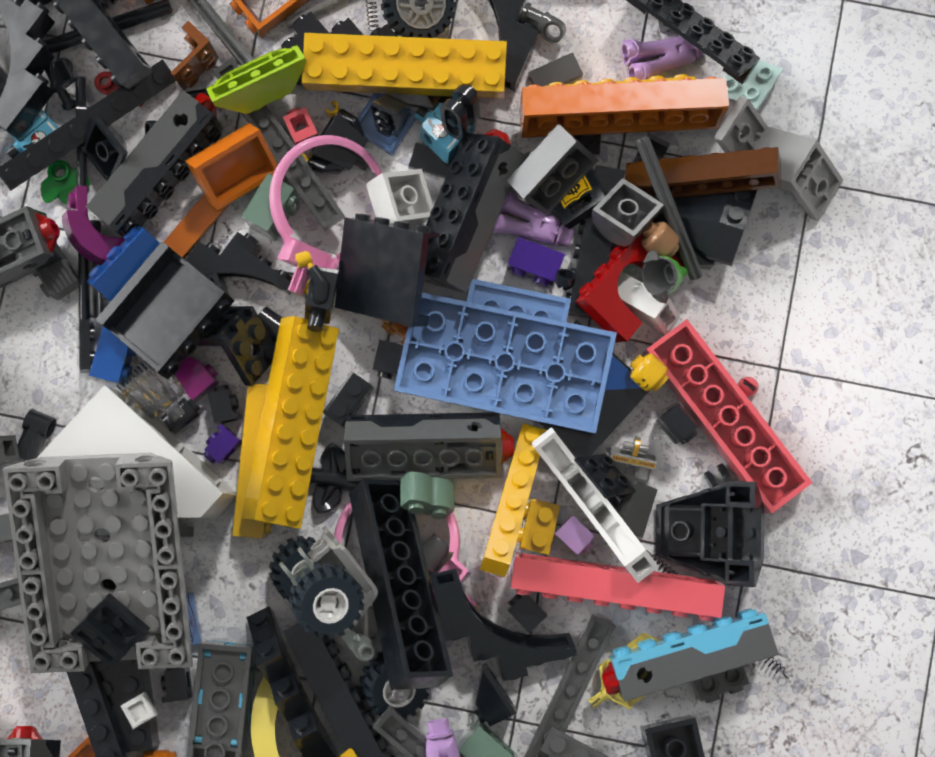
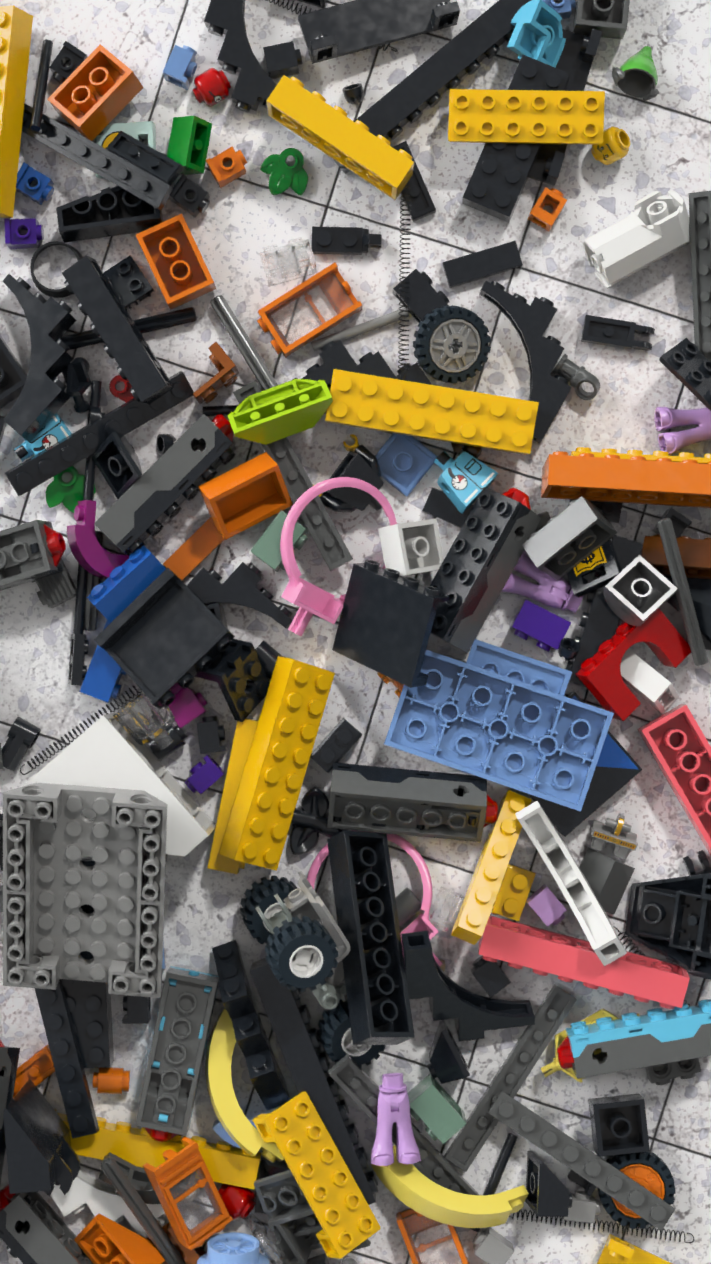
camera: 15 degrees right, 5 degrees up
(110, 630) = (84, 954): black slope -> none
(139, 710) = (101, 1029): white tile -> none
(297, 117) = (324, 466): coral brick -> none
(319, 292) = (320, 638): black torso -> none
(387, 359) = (380, 708): black brick -> none
(390, 115) = (411, 460): black slope -> none
(427, 495) = (405, 851): sand green brick -> none
(460, 111) = (486, 467): black brick -> none
(560, 70) = (583, 431): dark grey tile -> none
(606, 476) = (585, 853): black hinge -> none
(648, 372) = (640, 755): yellow head -> none
(660, 238) = (669, 624): medium nougat head -> none
(661, 275) = (666, 661): dark grey hat -> none
(678, 425) = (663, 808): black brick -> none

